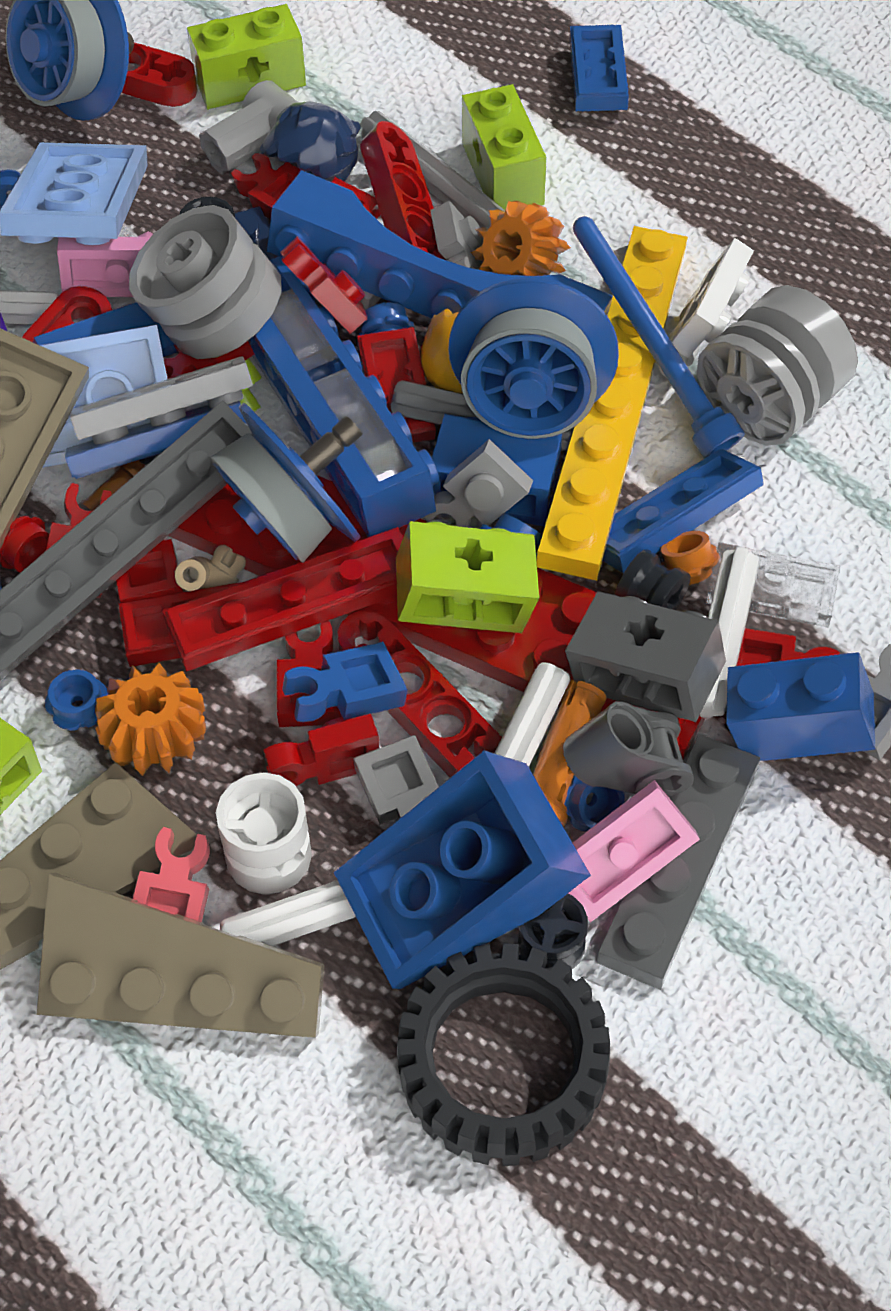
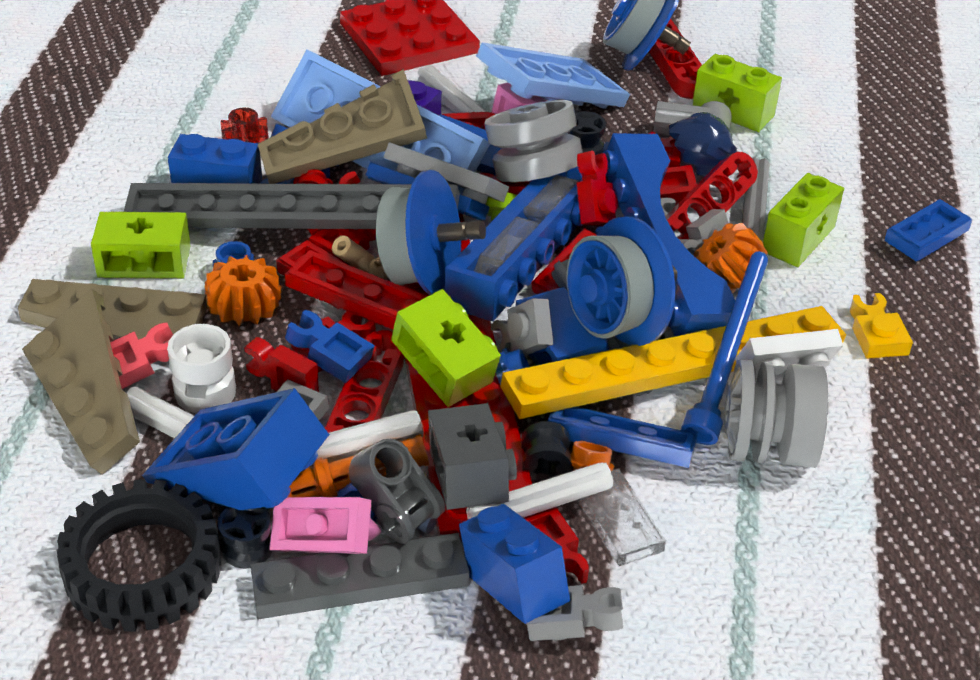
camera: 50 degrees right, 15 degrees down
(692, 209) = (879, 332): none -> yellow plate

